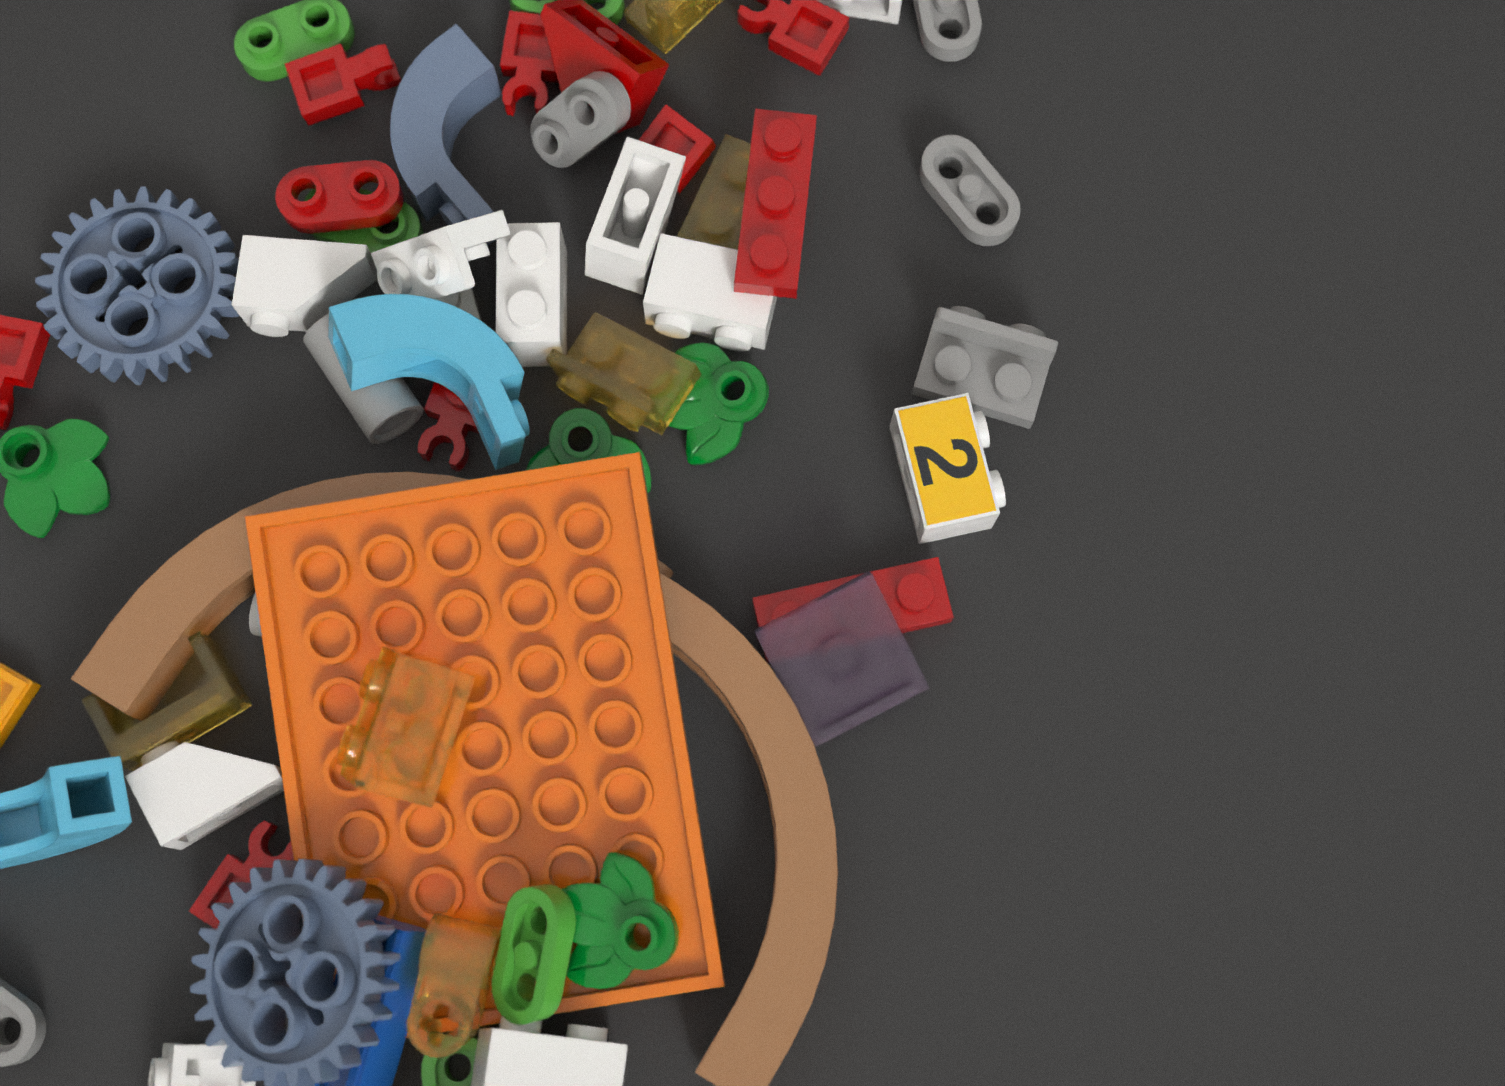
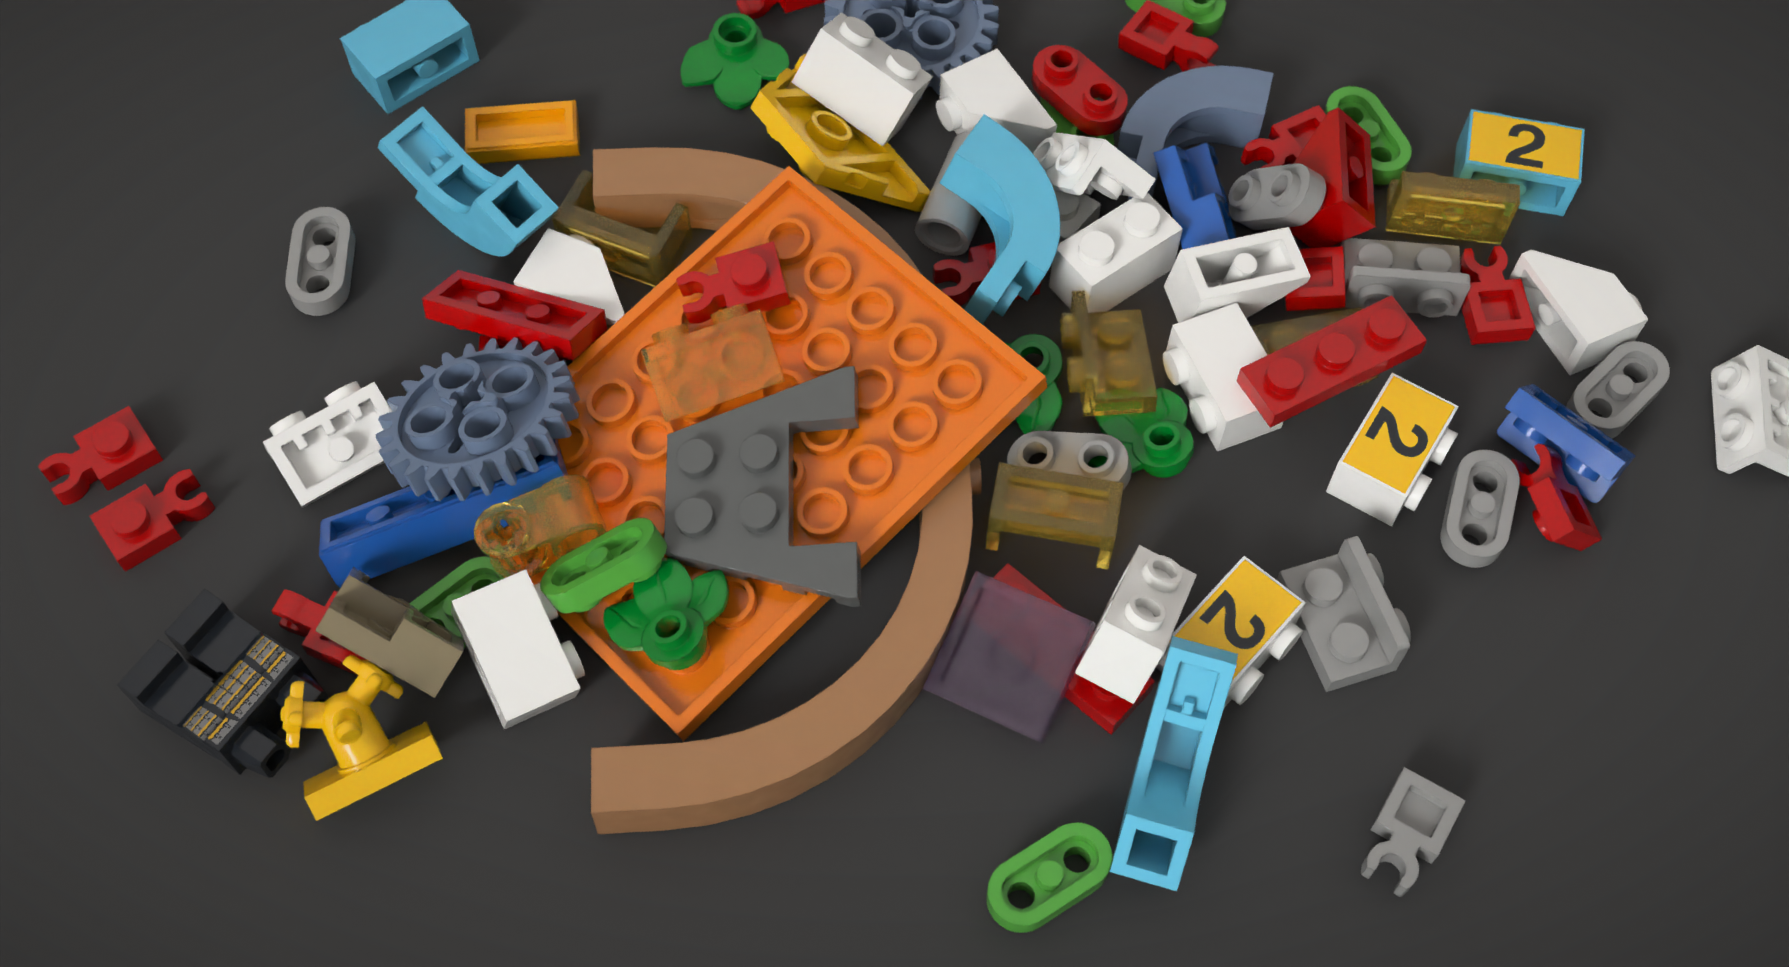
camera: 55 degrees right, 15 degrees down
(181, 377) = (862, 78): none -> white brick
(196, 867) = (514, 311): none -> red plate
(217, 446) = (834, 150): none -> yellow wing
(342, 640) = (743, 277): none -> red plate
(529, 184) = (1195, 194): none -> blue slope
(542, 789) = (735, 491): none -> dark grey wing
(699, 482) = (1072, 452): none -> light grey plate
(721, 76) = (1417, 275): none -> light grey bracket
(740, 527) = (1055, 508): none -> clear yellow panel
(875, 214) = (1392, 450): none -> brick
(894, 539) = (1136, 624): none -> white brick
(966, 80) = (1587, 454): none -> blue bracket
(1013, 131) = (1560, 507): none -> red plate
(1026, 607) = (1173, 764): none -> medium azure arch
(1044, 763) = (1046, 878): none -> bright green plate
(1186, 449) = (1414, 822): none -> light grey plate

